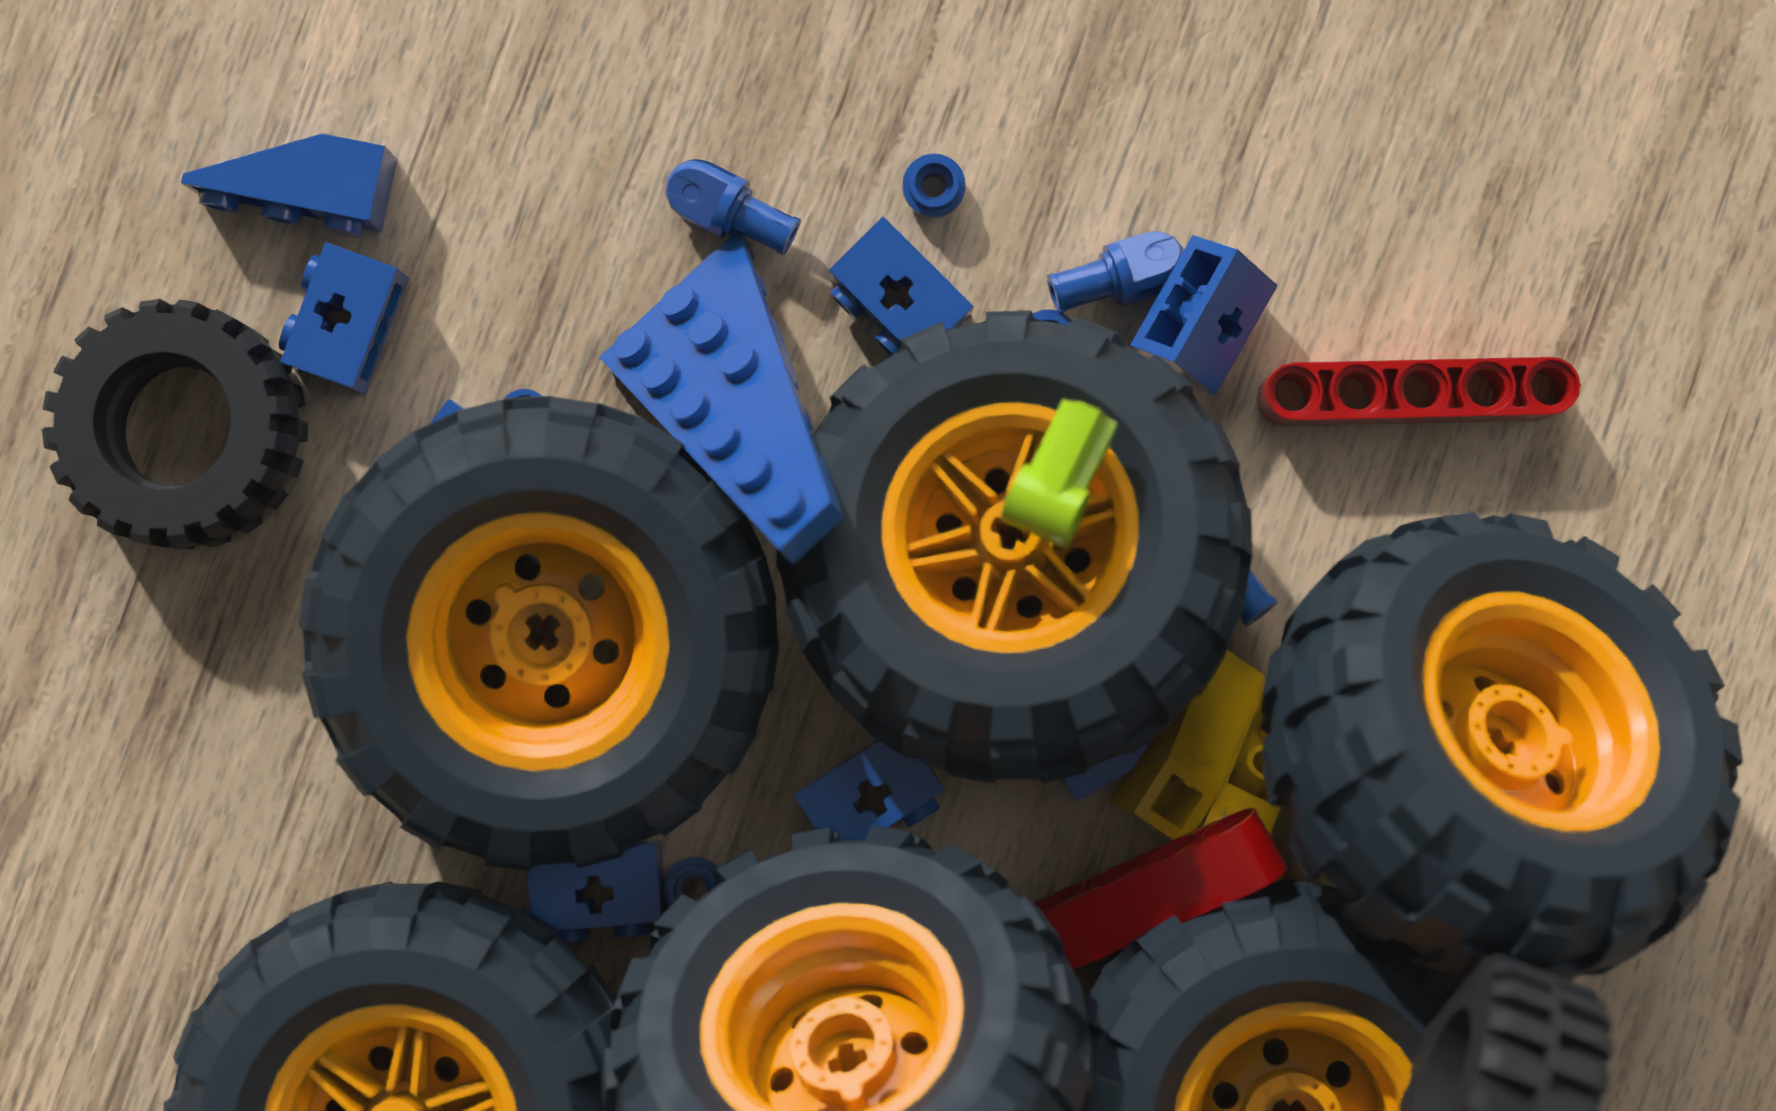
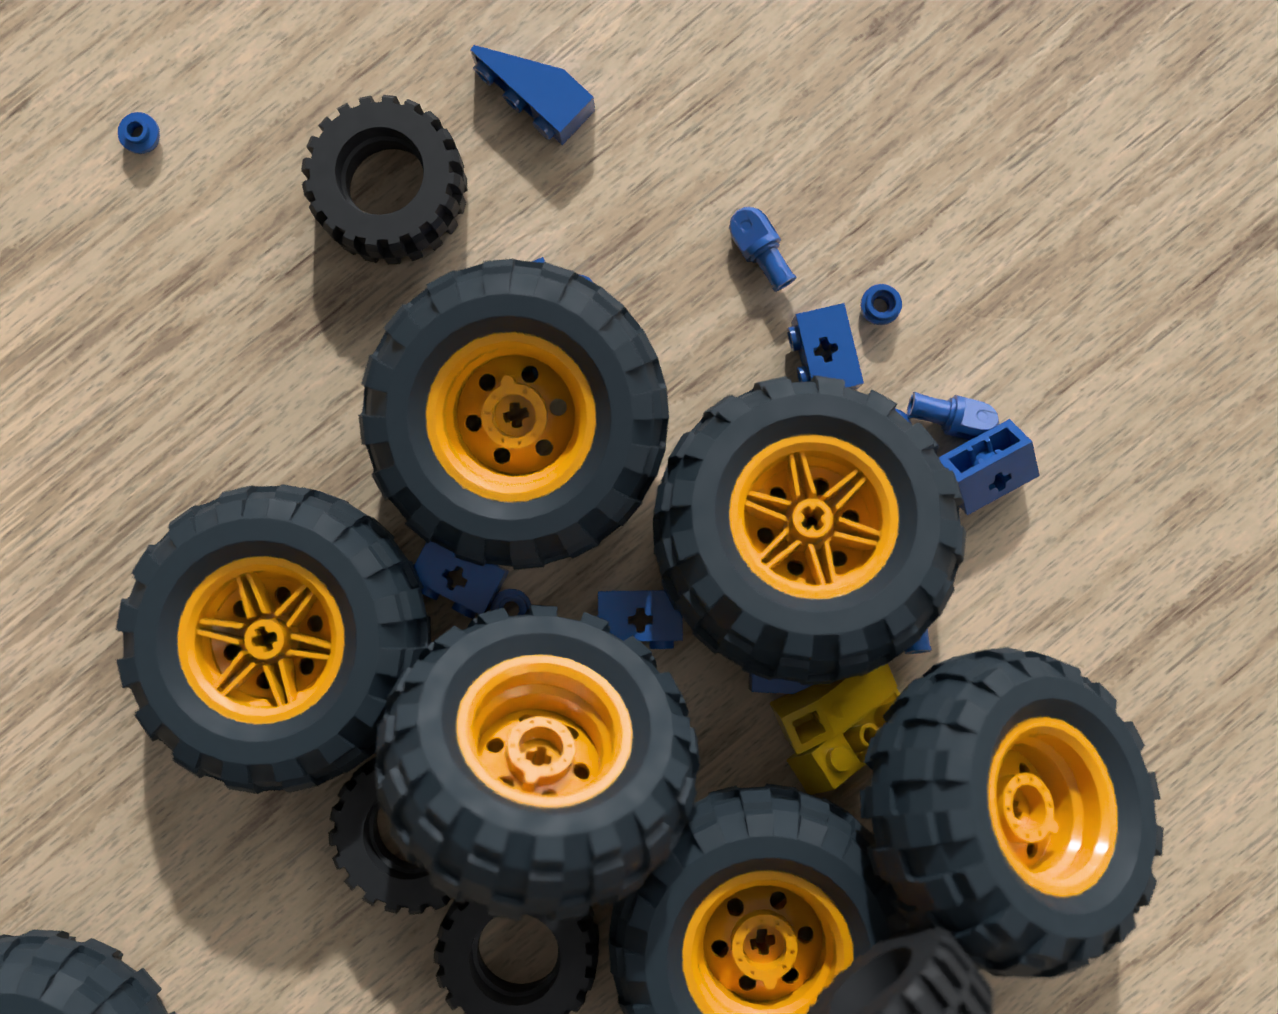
camera: 35 degrees right, 0 degrees up
(342, 351) = (502, 197): blue brick -> none
(726, 389) = (701, 340): wing -> none
(1054, 491) = (853, 509): lime piece -> none
(1175, 878) = (785, 770): red beam -> none
(1447, 386) = (1099, 587): red beam -> none

